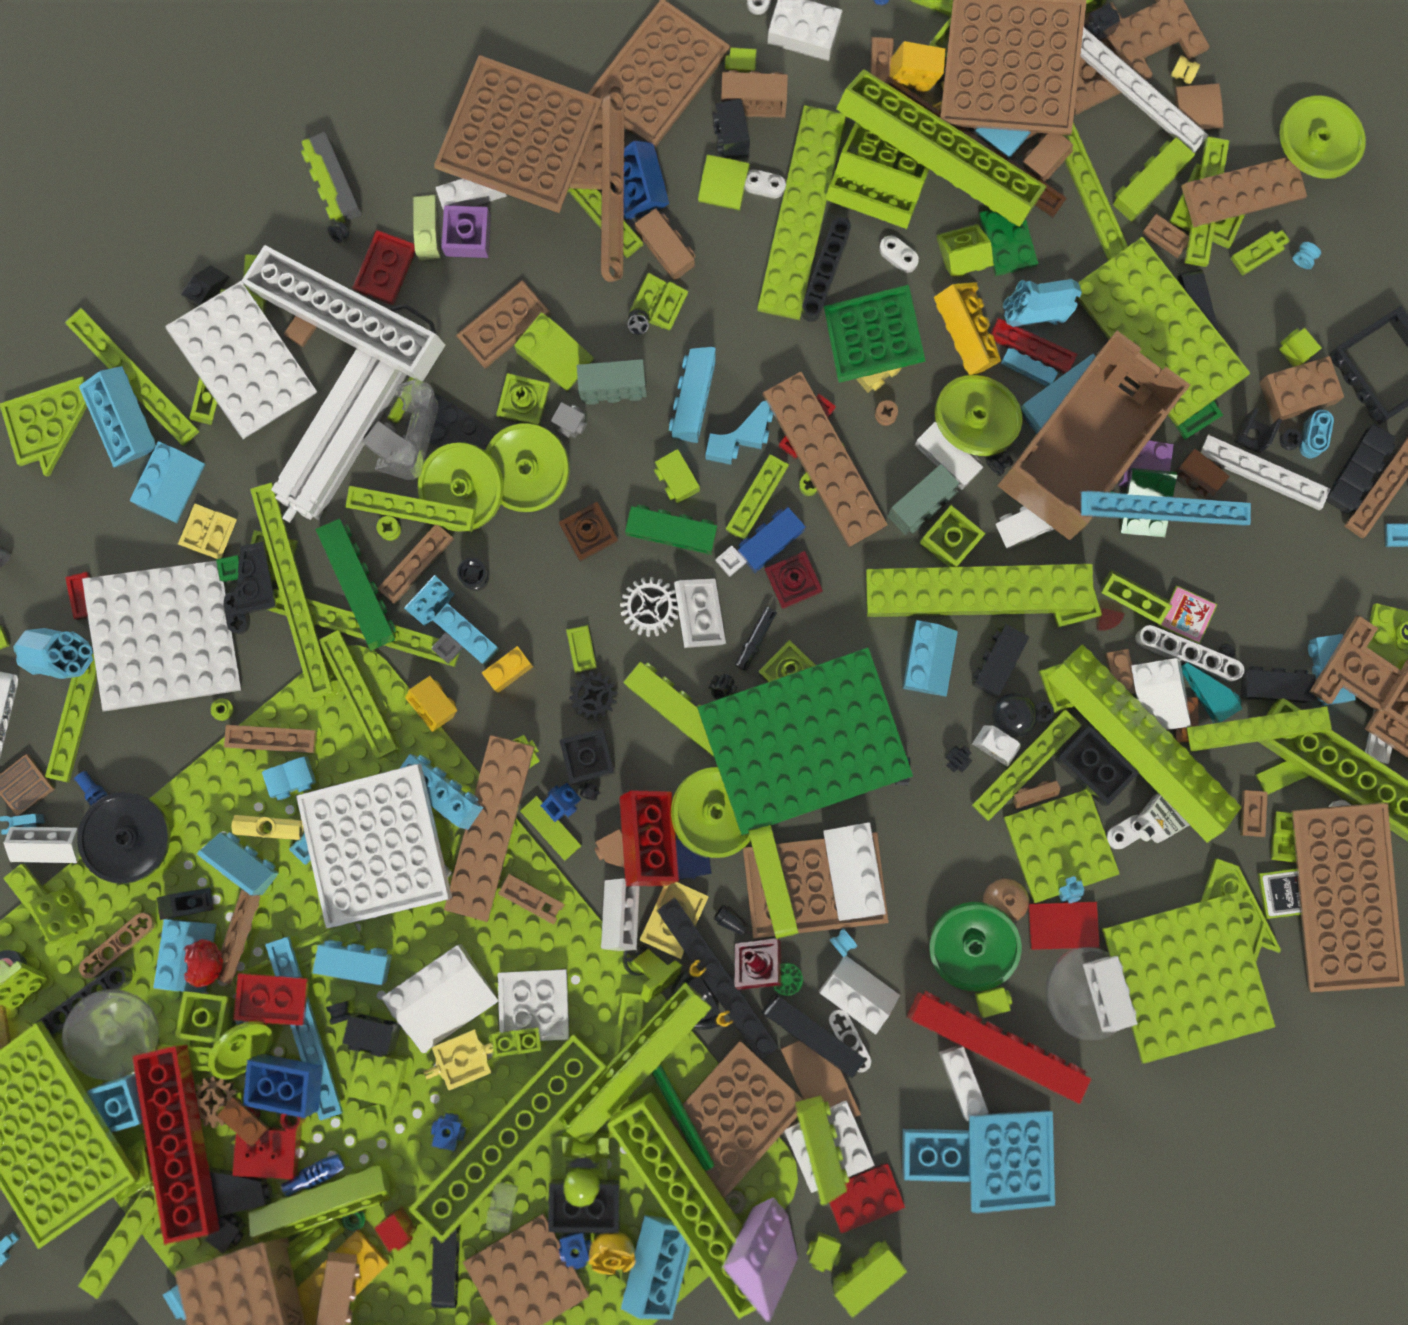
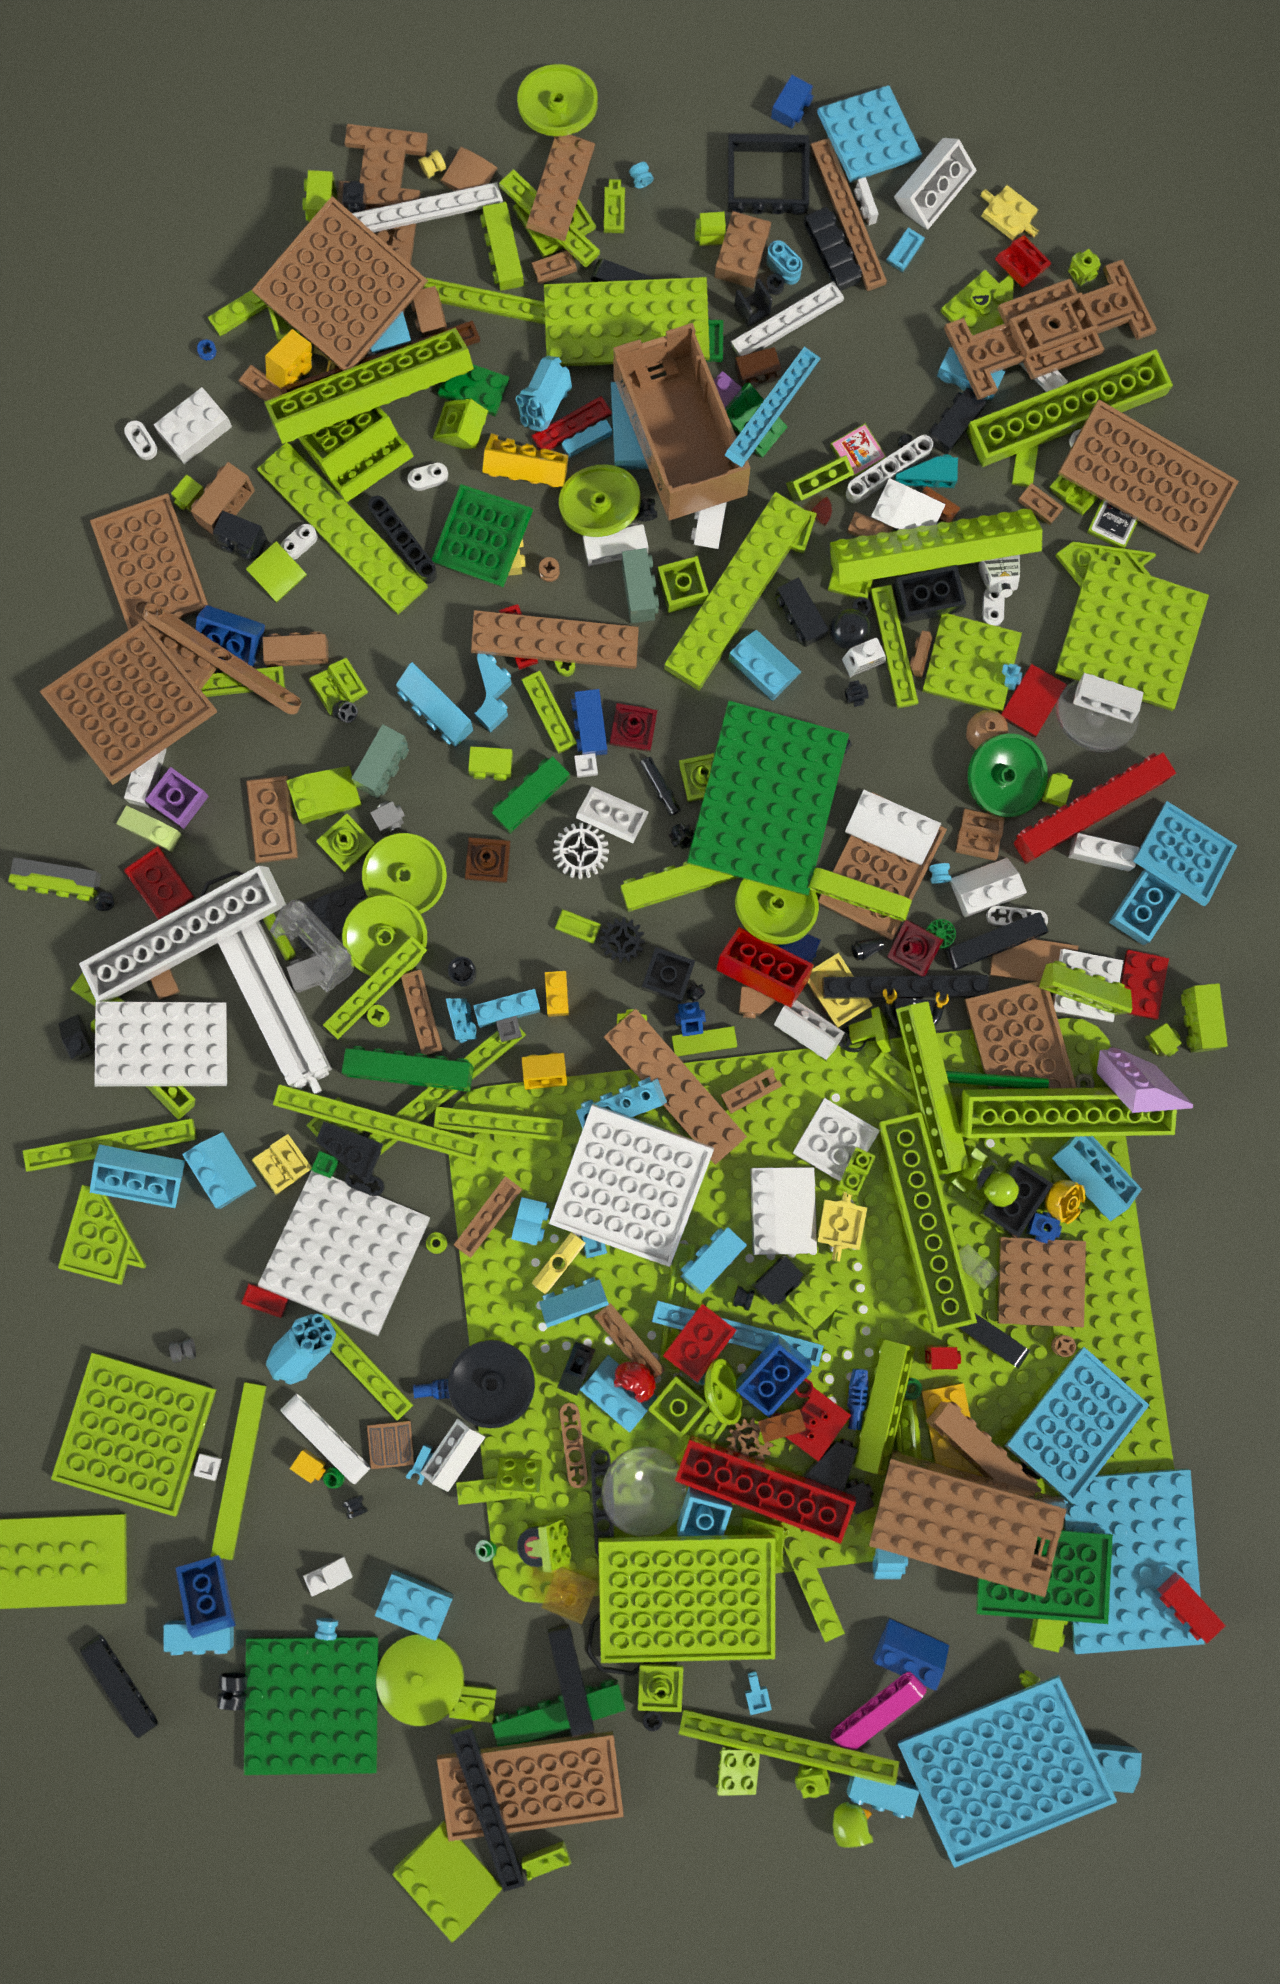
camera: 70 degrees left, 0 degrees up
(446, 1140) = (899, 1271): blue brick -> none
(904, 956) = (980, 834): none -> medium nougat slope
(1259, 729) = (981, 455): lime plate -> none

